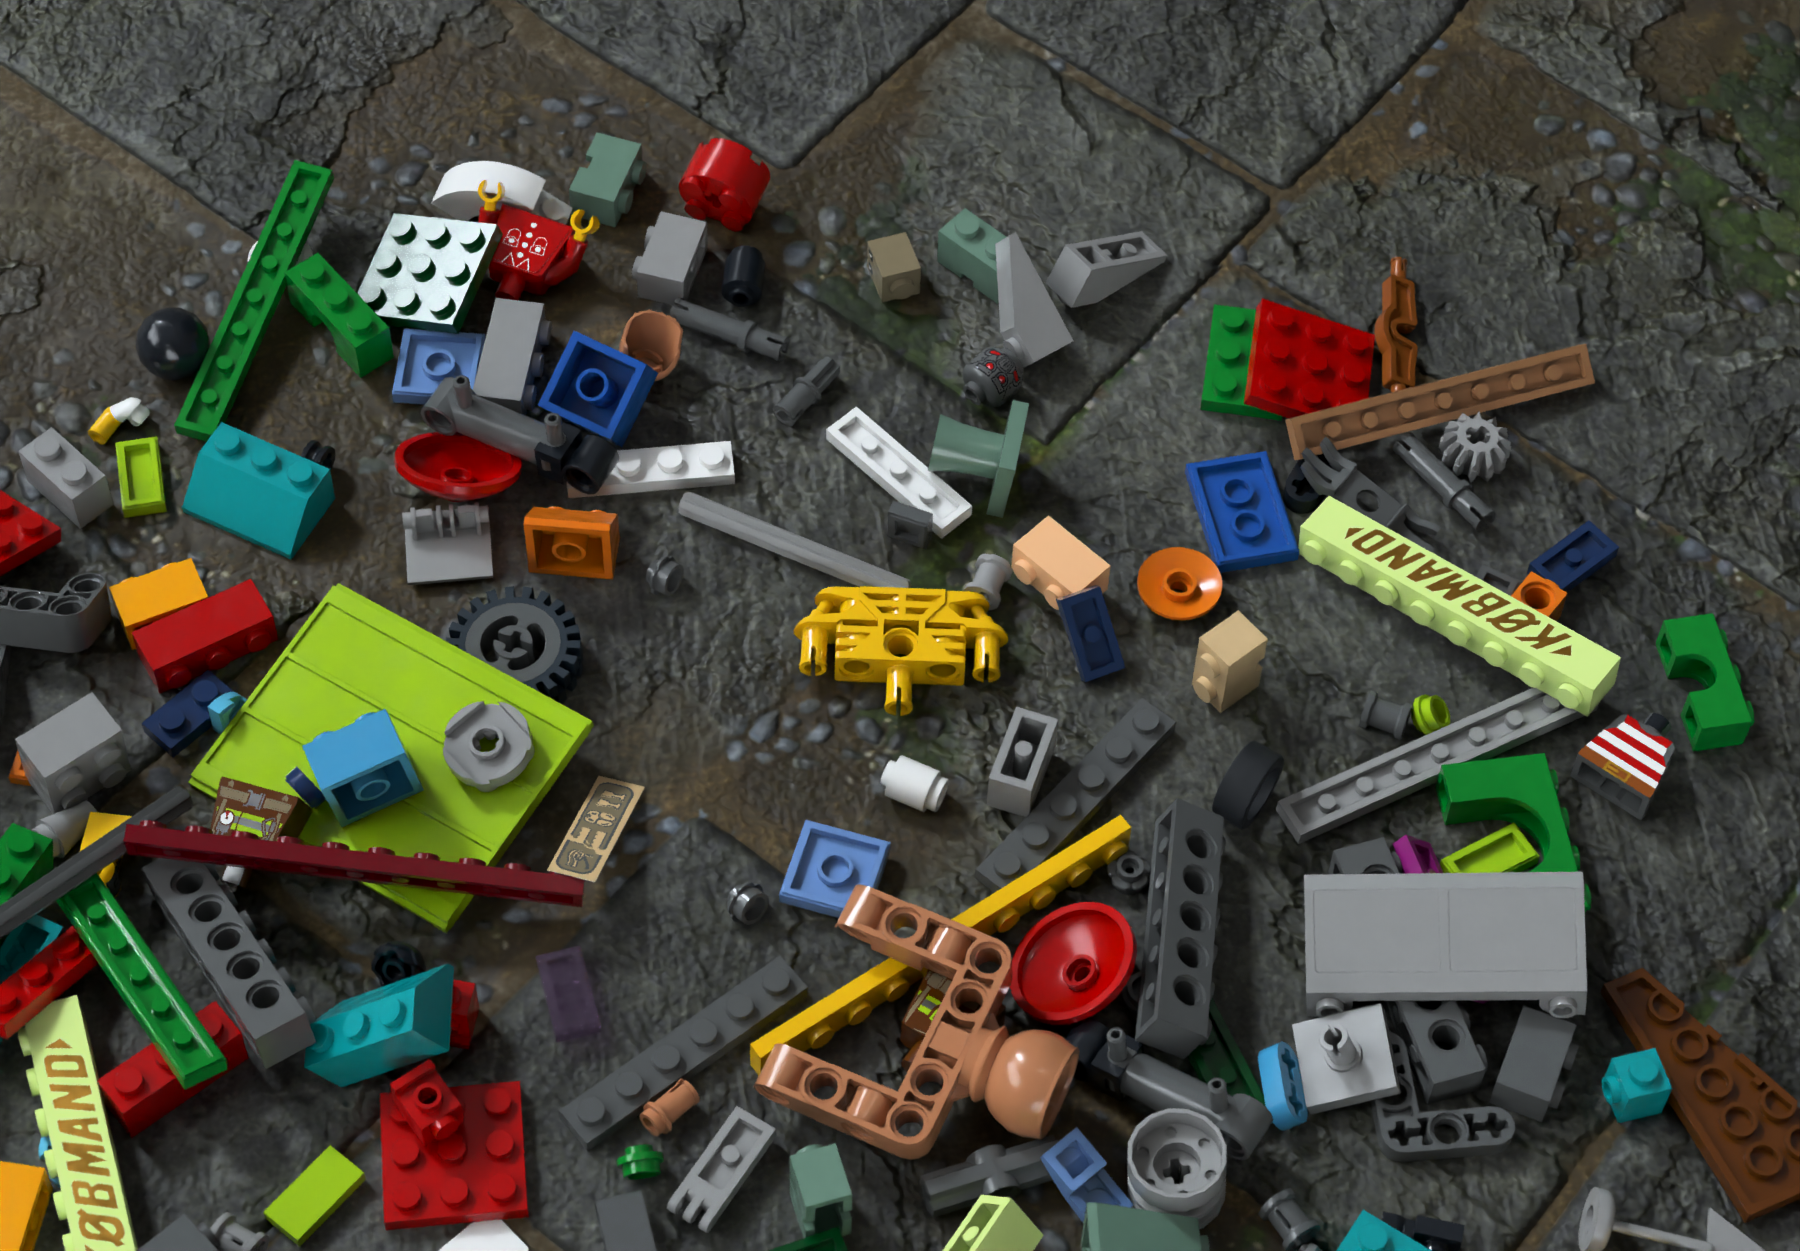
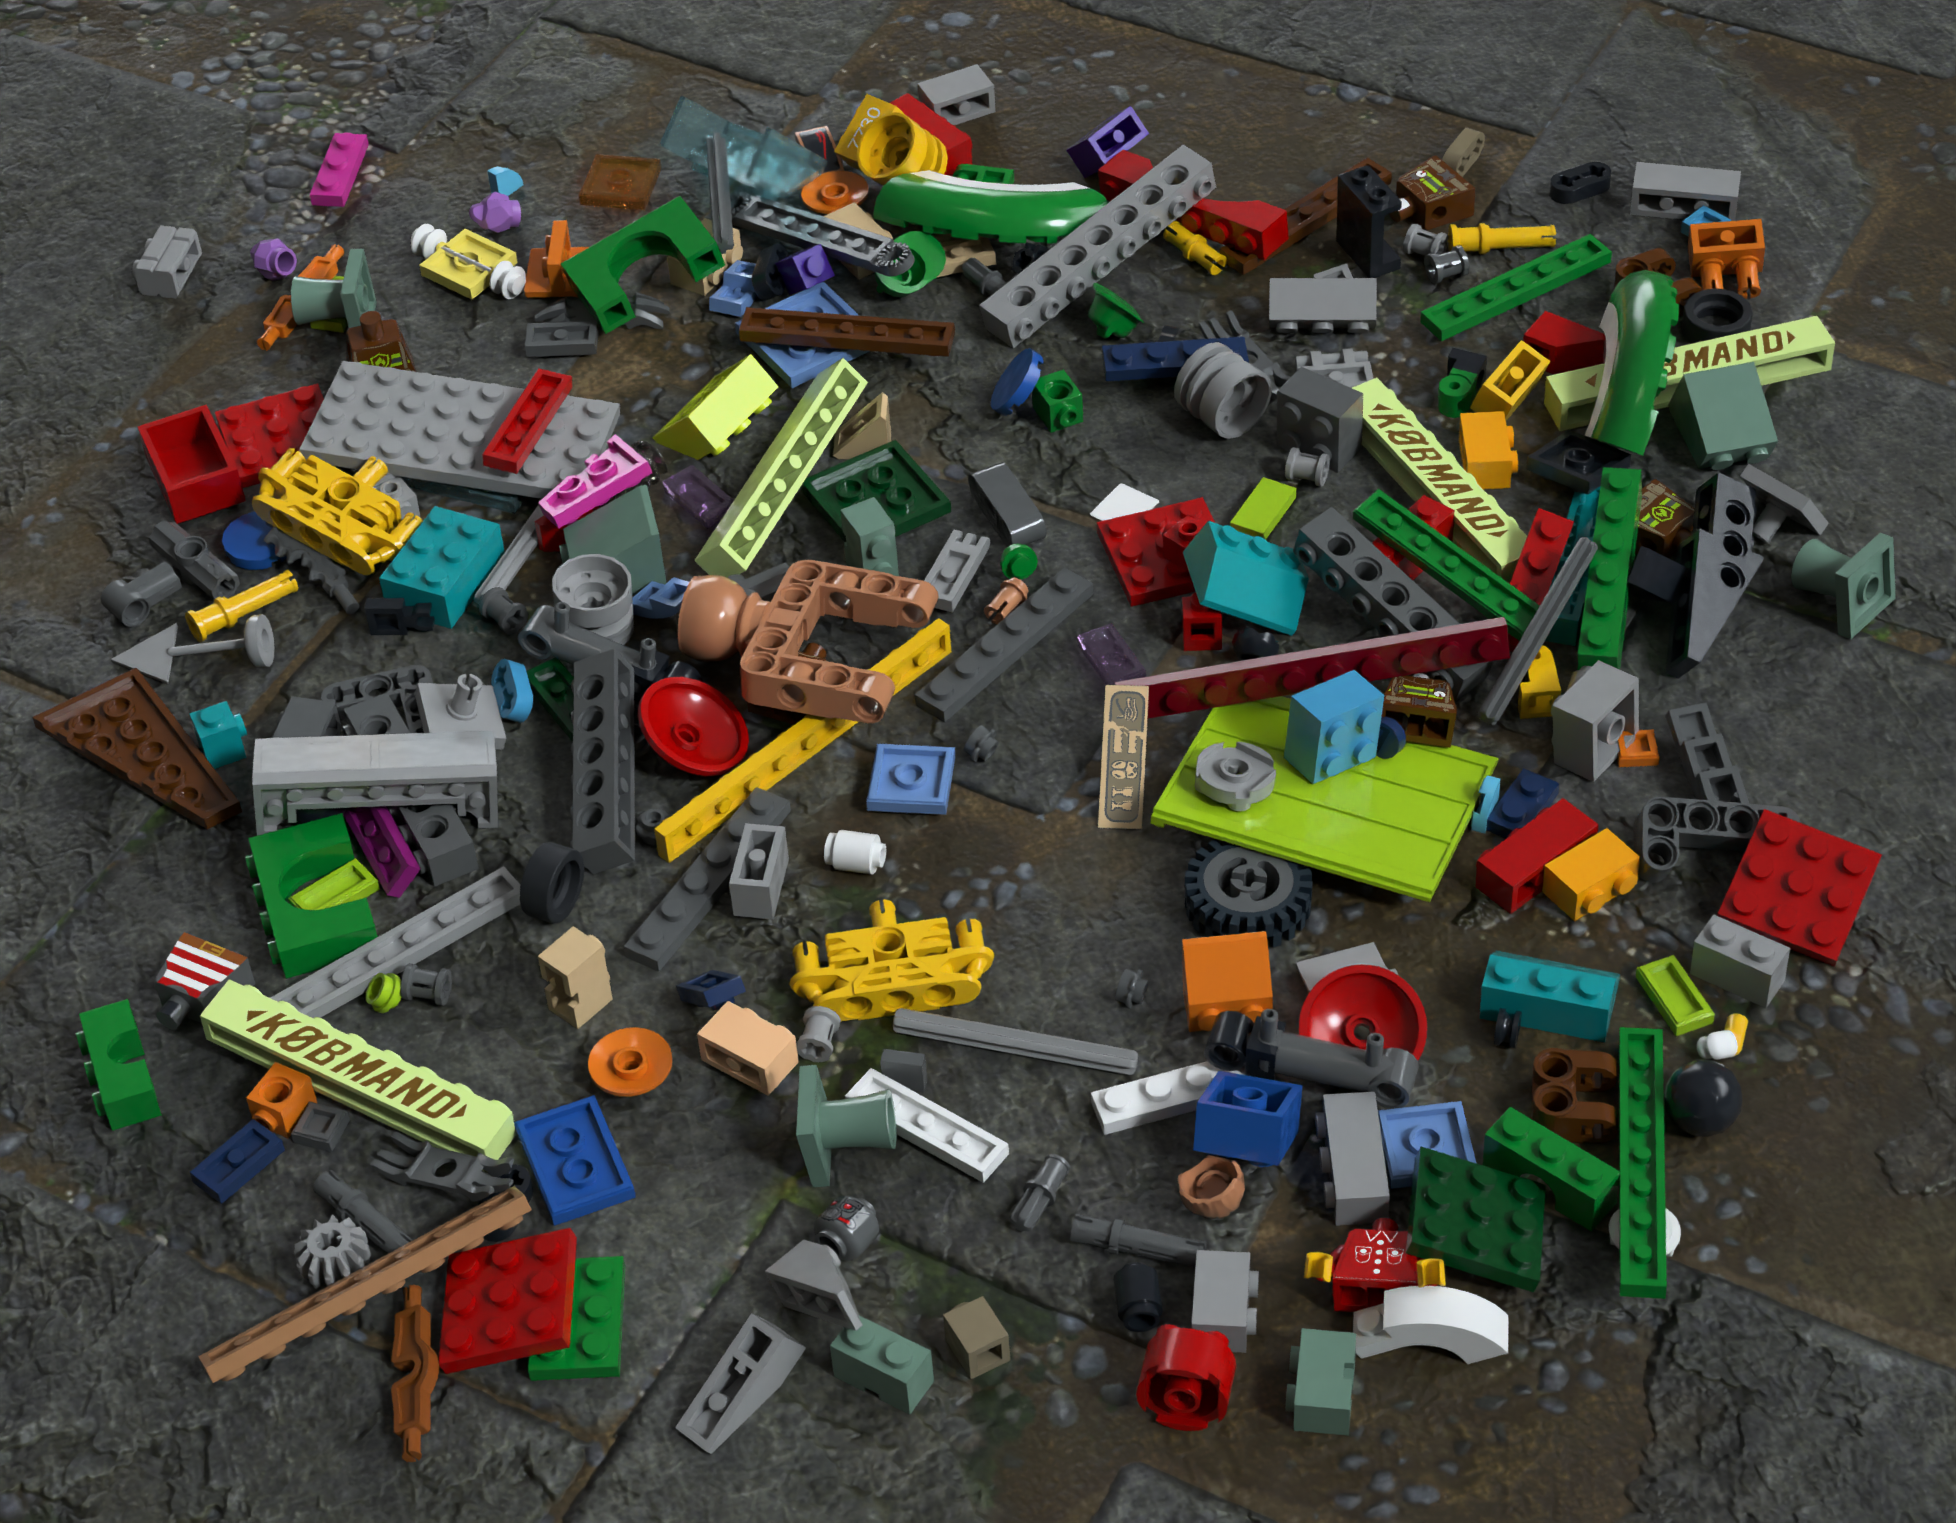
camera: 175 degrees right, 10 degrees down
(295, 396) = (1554, 1100): none -> reddish brown piece

